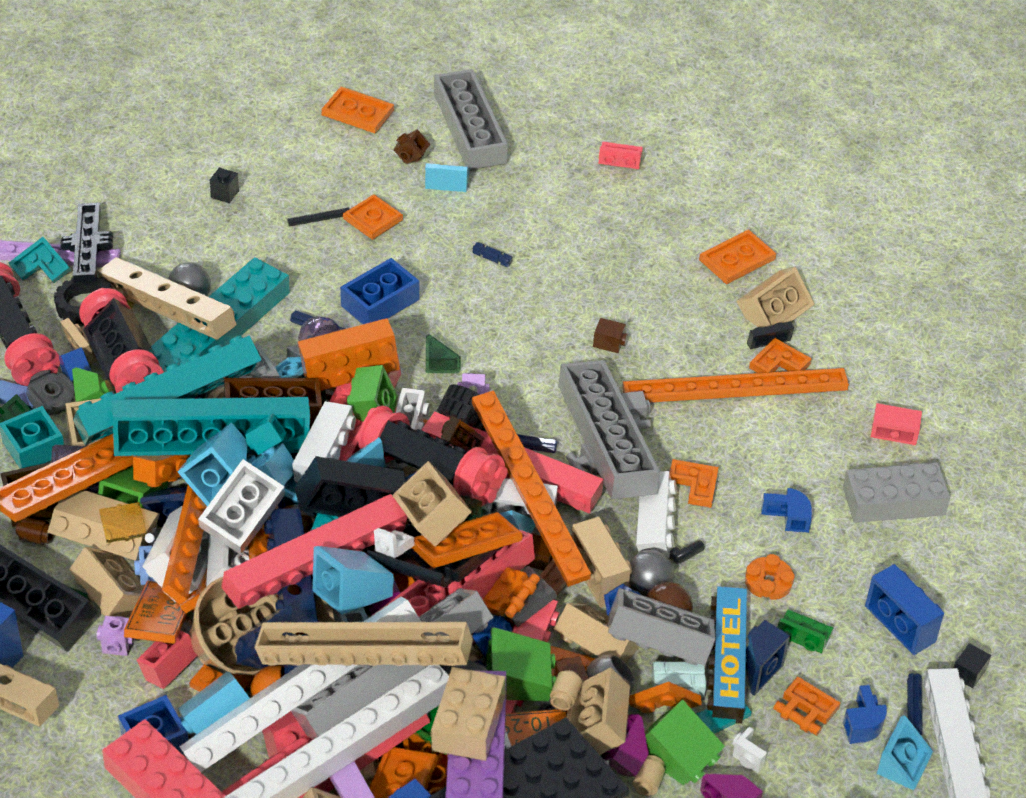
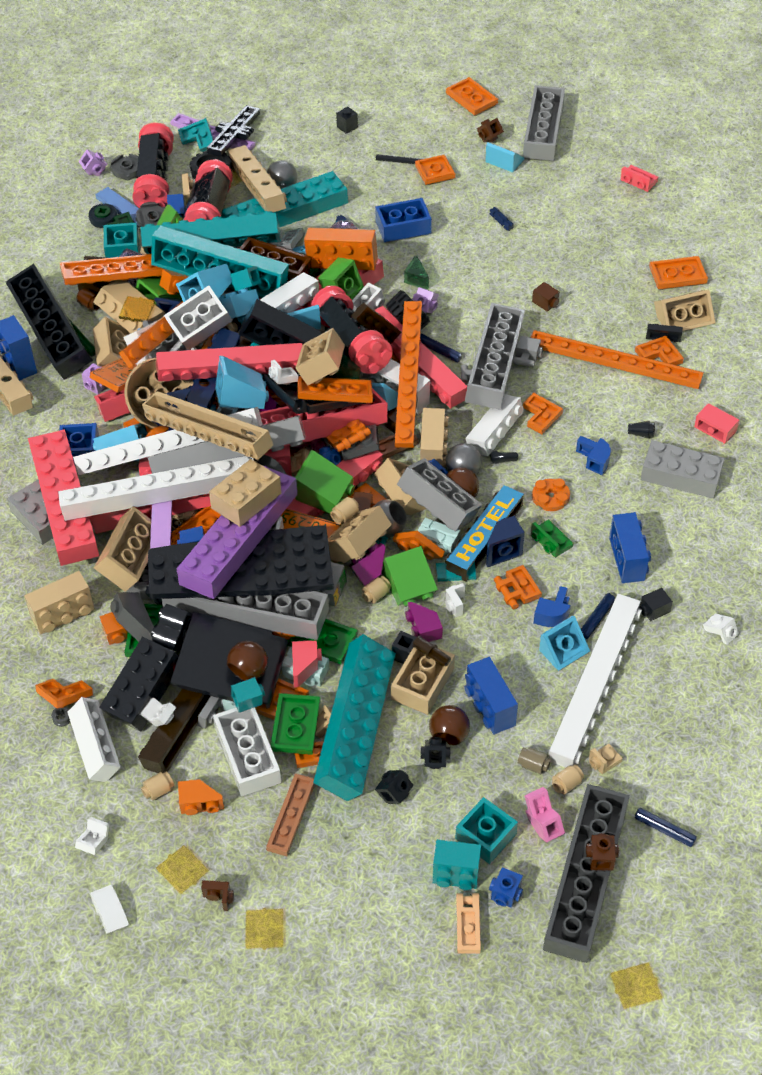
camera: 30 degrees right, 5 degrees up
(820, 460) = (643, 429): none -> black cone

